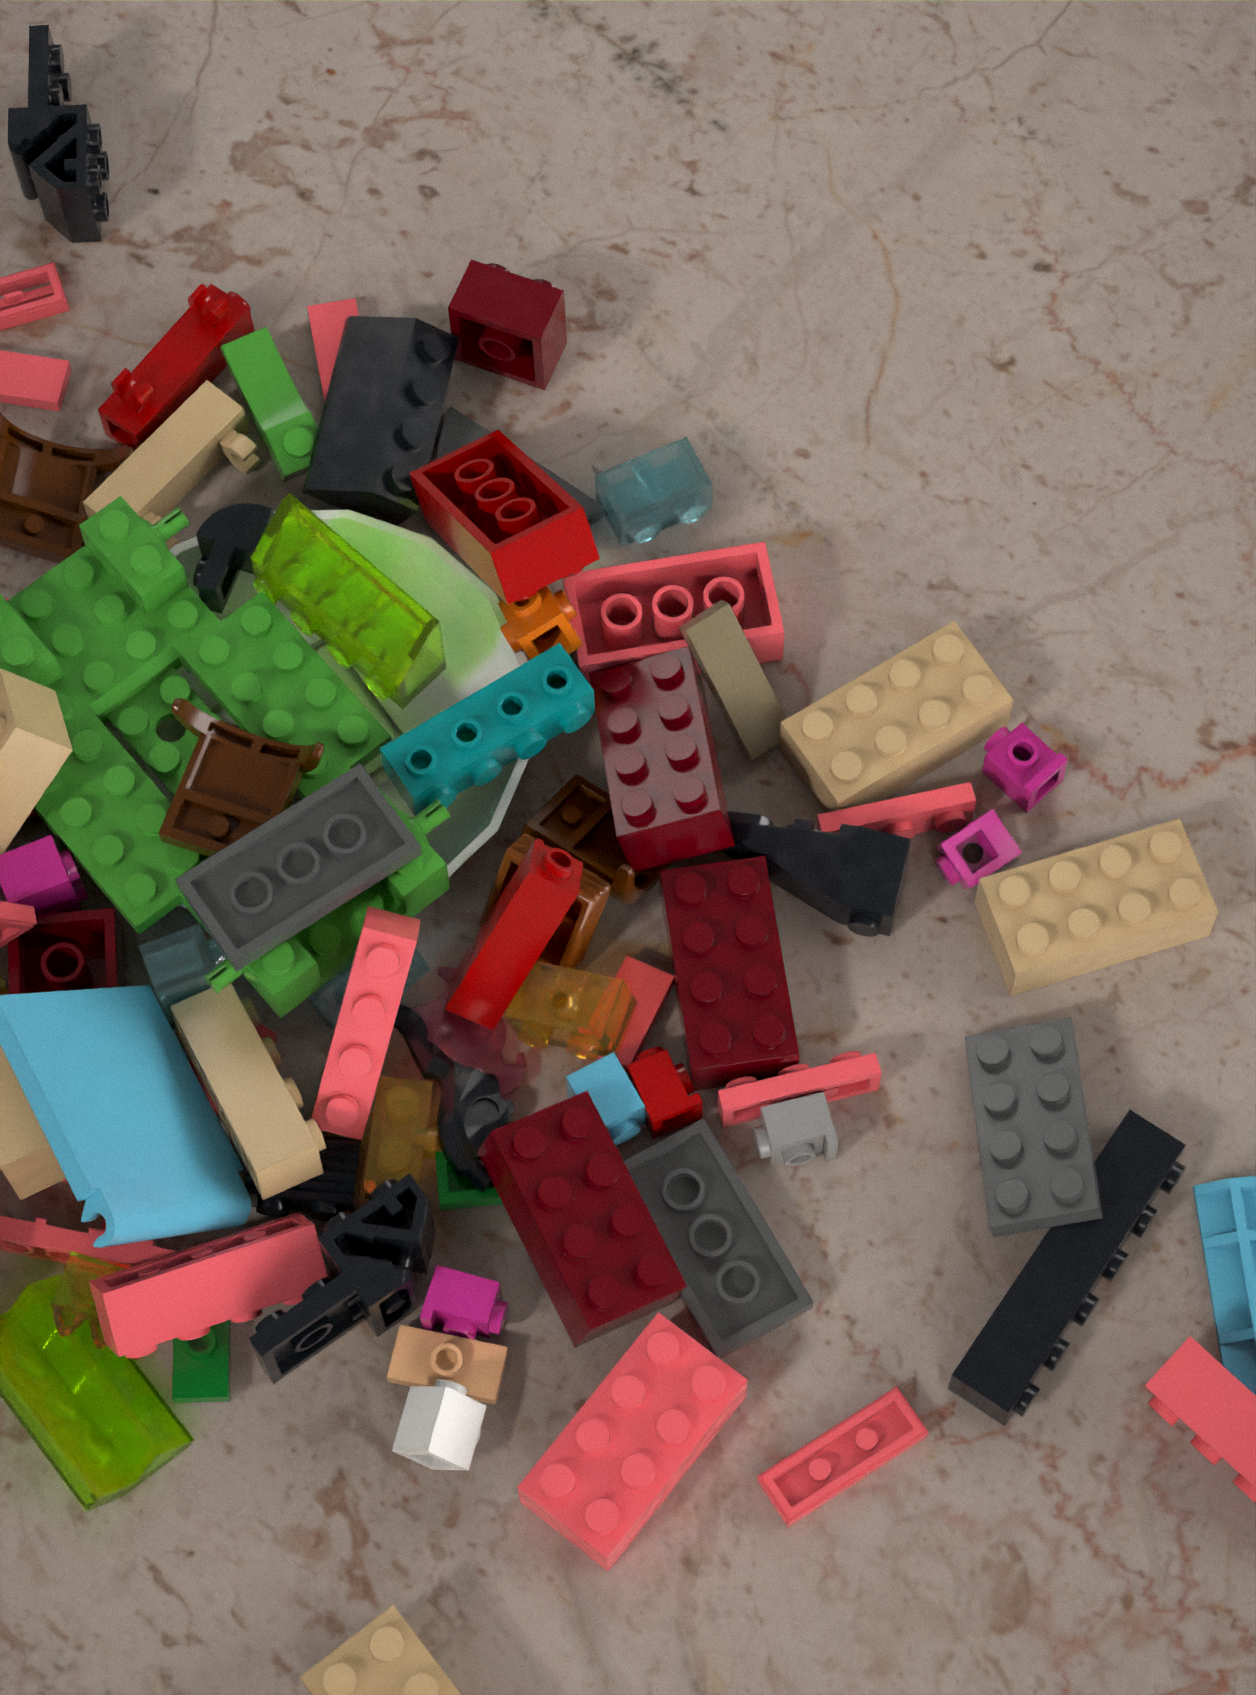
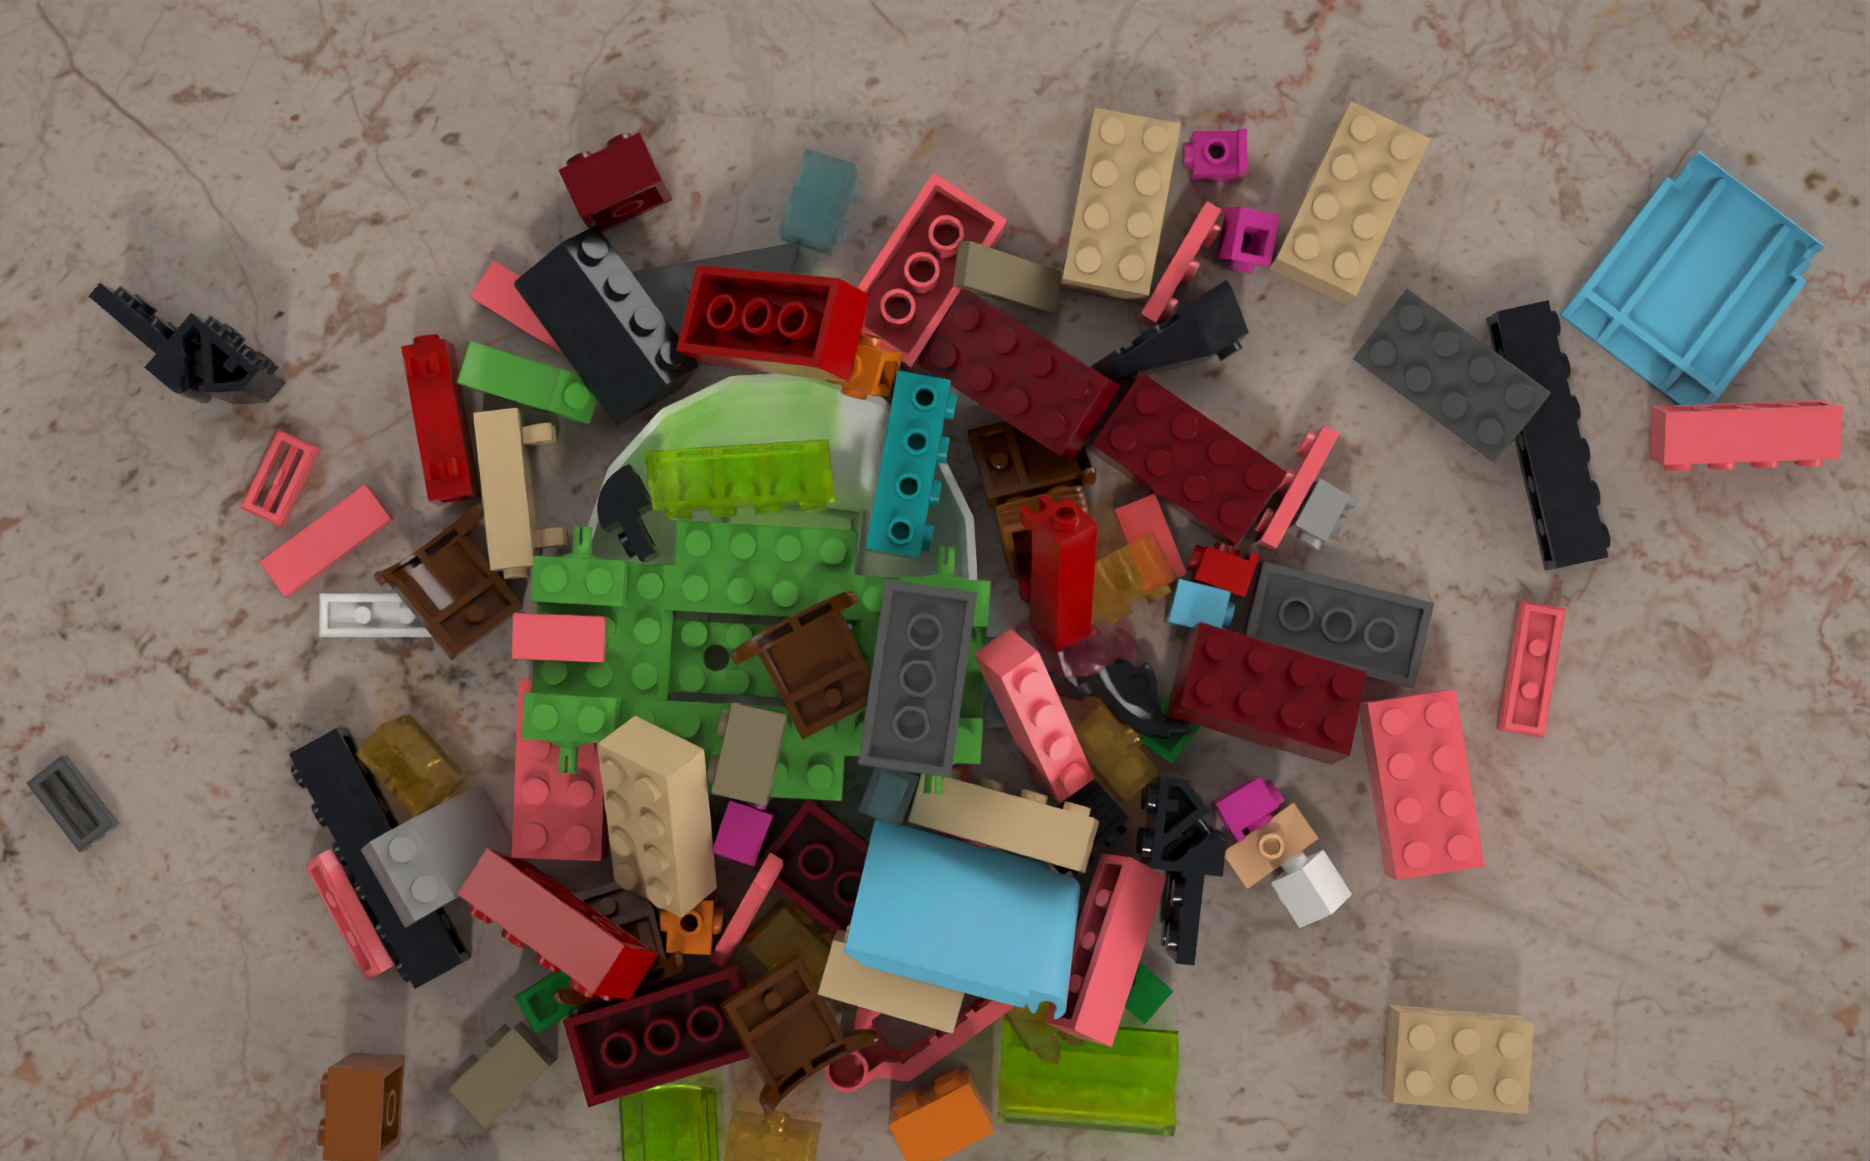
camera: 50 degrees left, 20 degrees up
(69, 578) = (559, 637): none -> coral tile
(105, 803) = (748, 753): none -> dark tan brick

